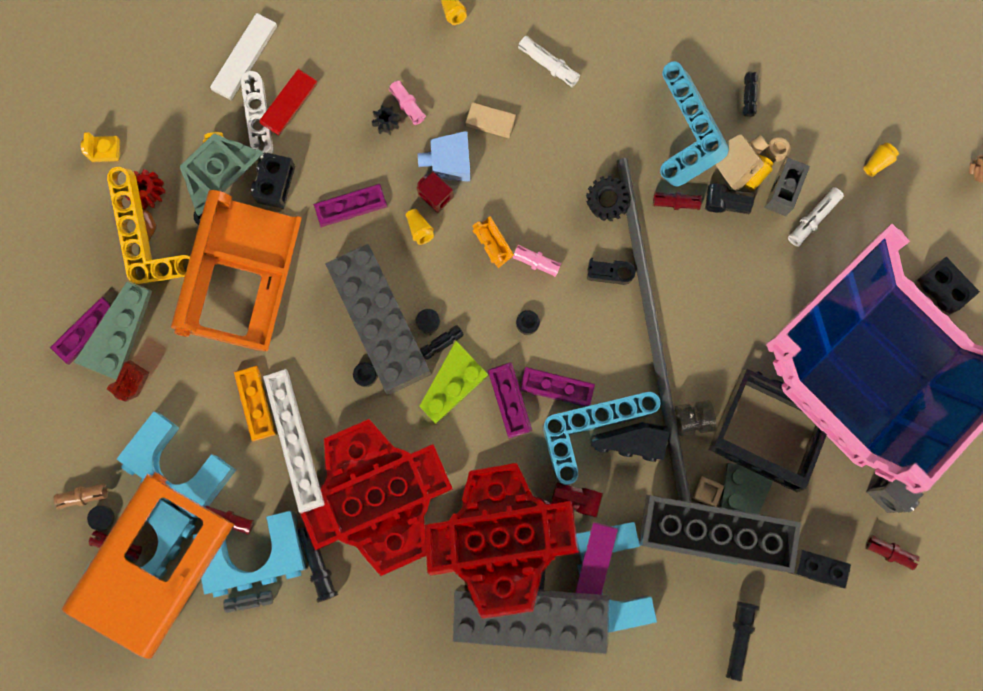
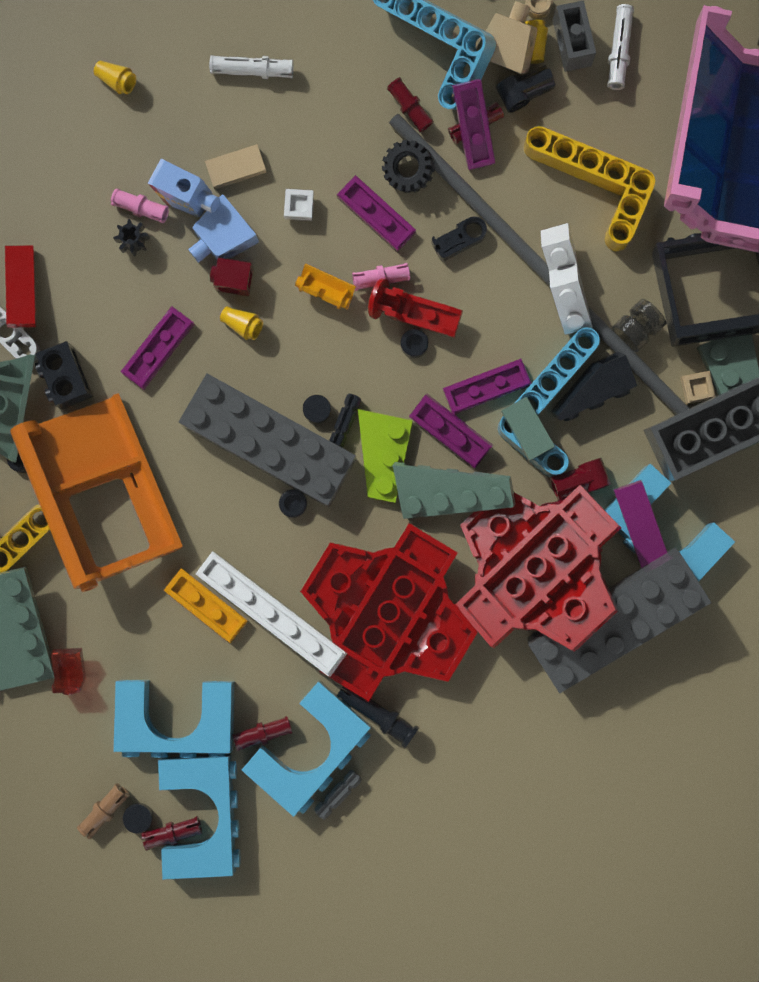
camera: 30 degrees left, 5 degrees up
(129, 601) = (221, 873): orange piece -> none
(444, 116) = (182, 189): none -> light blue torso
(473, 439) = (442, 492): none -> sand green wing
(515, 174) = (298, 204): none -> white plate
(542, 297) = (413, 309): none -> red piece
(563, 436) = (527, 428): none -> sand green tile
(564, 216) = (376, 213): none -> magenta tile
(639, 158) = (410, 105): none -> dark red pin
(663, 349) = (565, 278): none -> white arch
(674, 200) = (473, 124): none -> magenta tile
(737, 294) = (597, 176): none -> yellow beam

